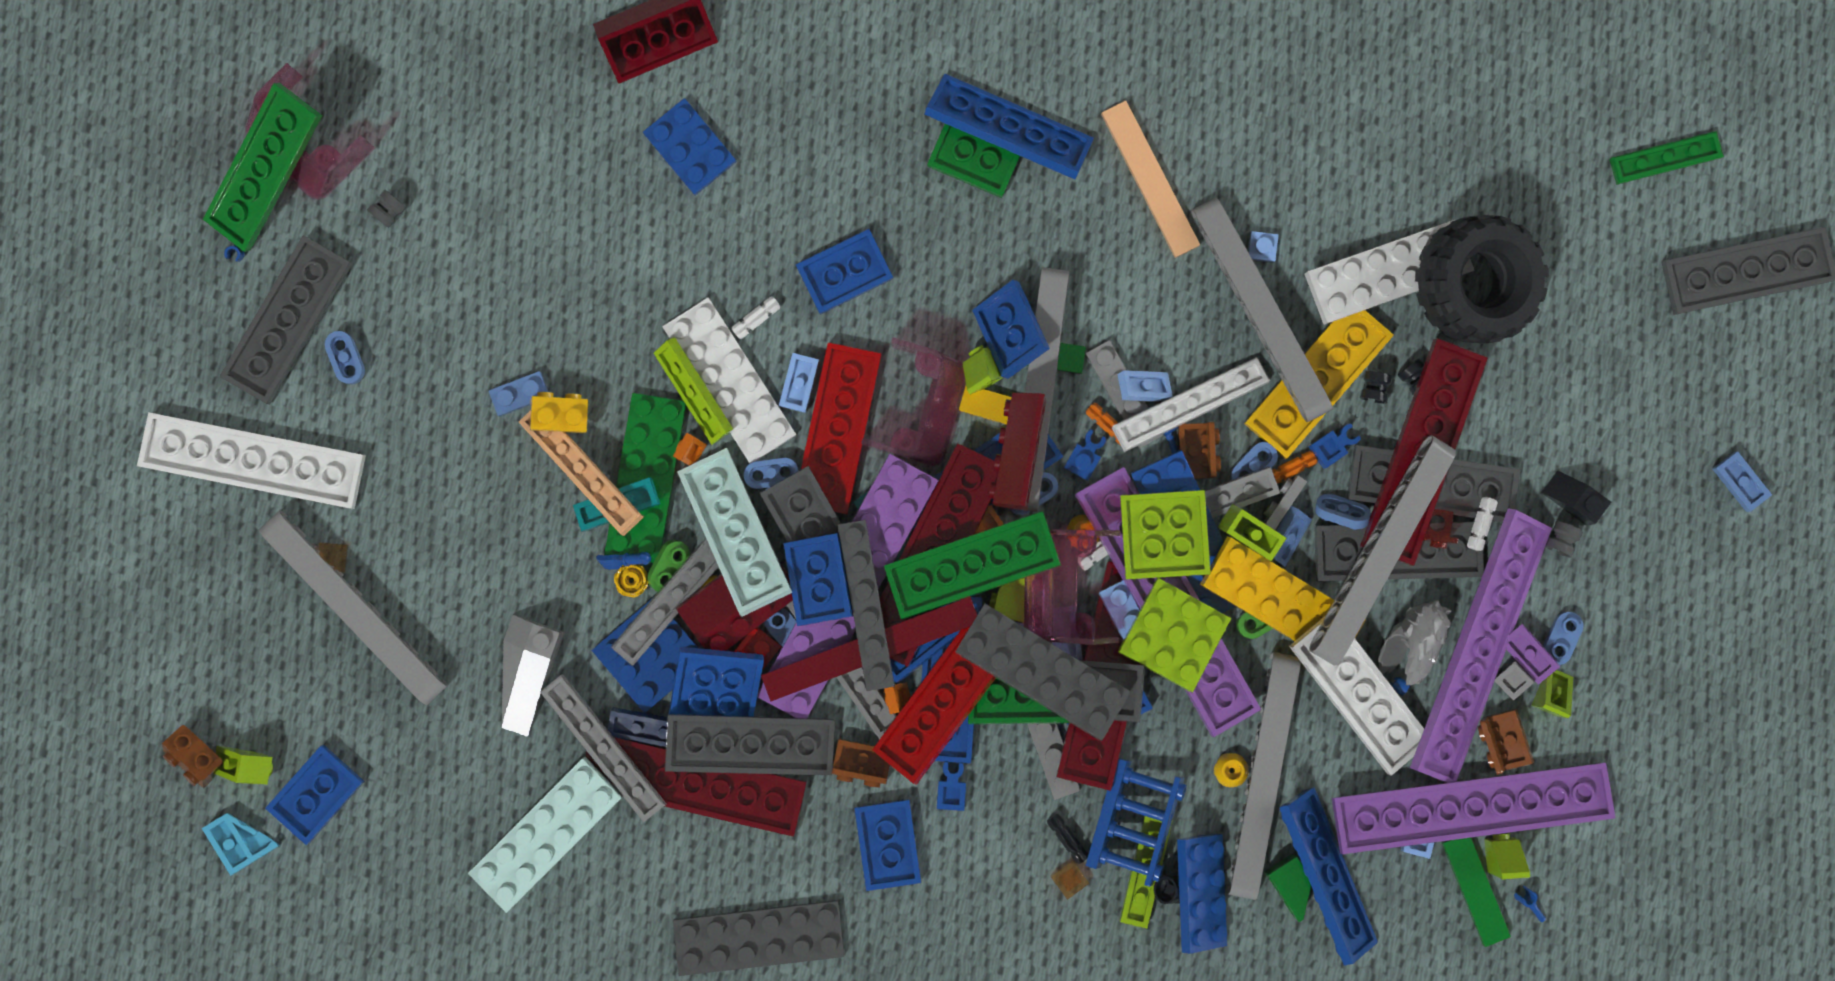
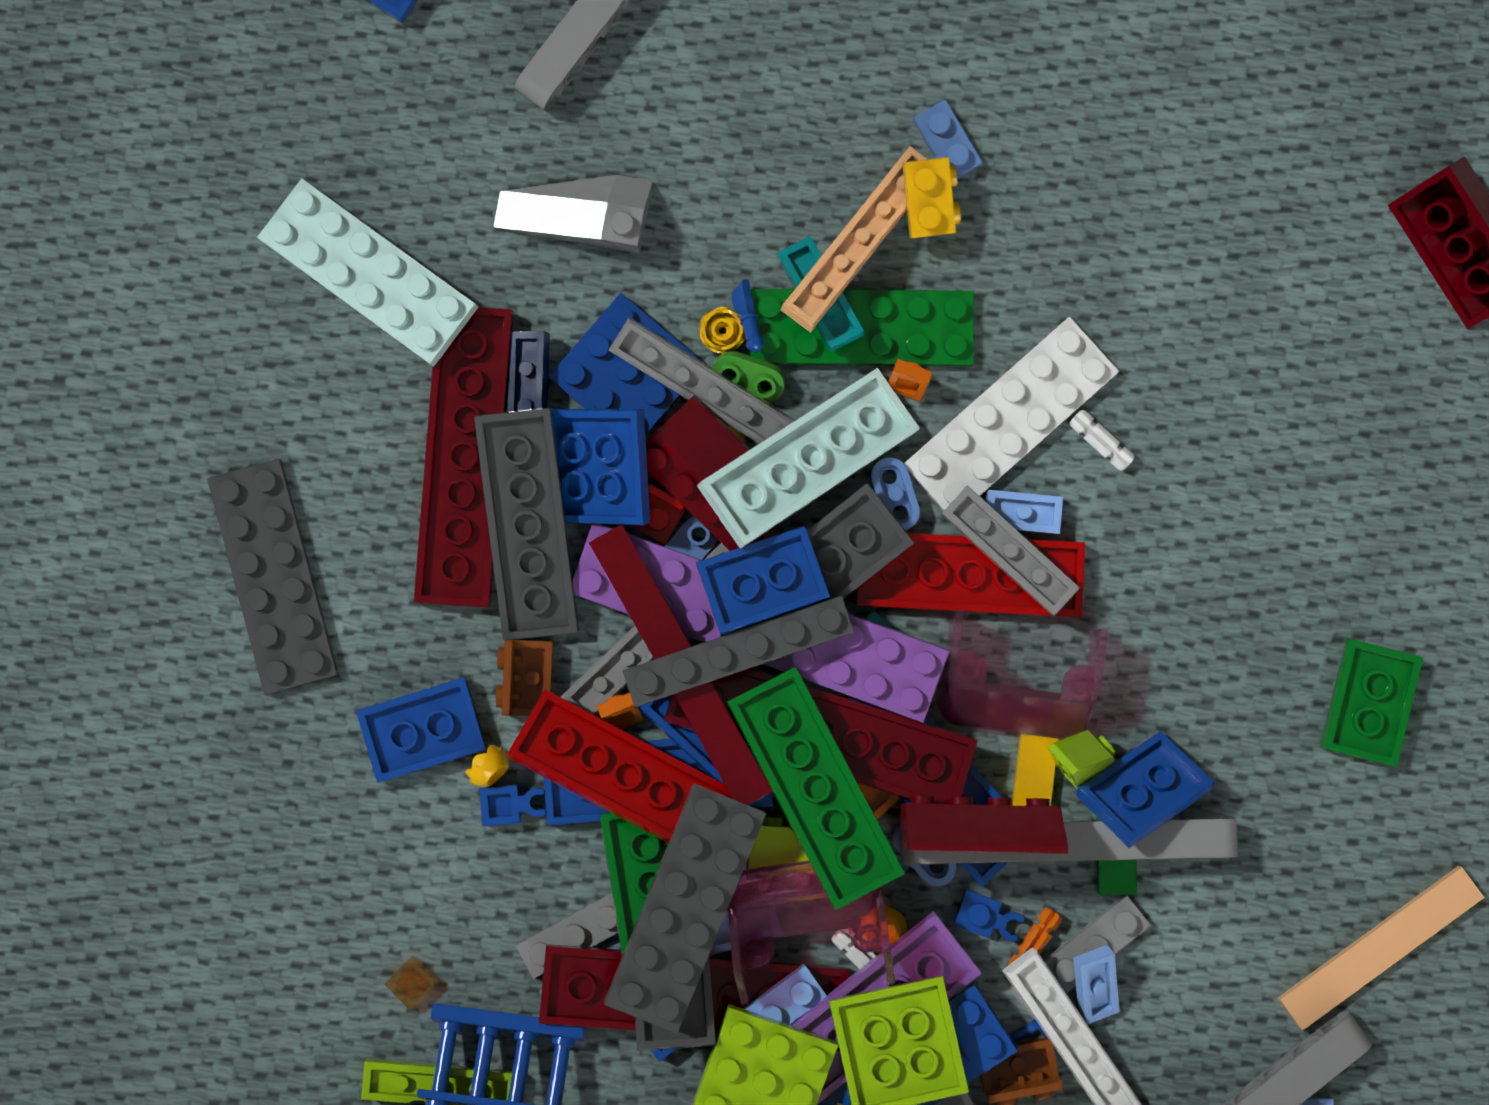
camera: 75 degrees right, 0 degrees up
(603, 748) = (493, 329): light grey tile -> none
(689, 146) = (1318, 313): blue plate -> none
(693, 391) = (989, 371): lime plate -> none
(825, 397) = (1010, 551): none -> light grey plate
(844, 271) = (1184, 549): blue plate -> none
(922, 799) = (488, 767): none -> yellow plate
(1009, 126) = (1422, 743): blue plate -> none
(1067, 838) = (466, 971): black axle -> none

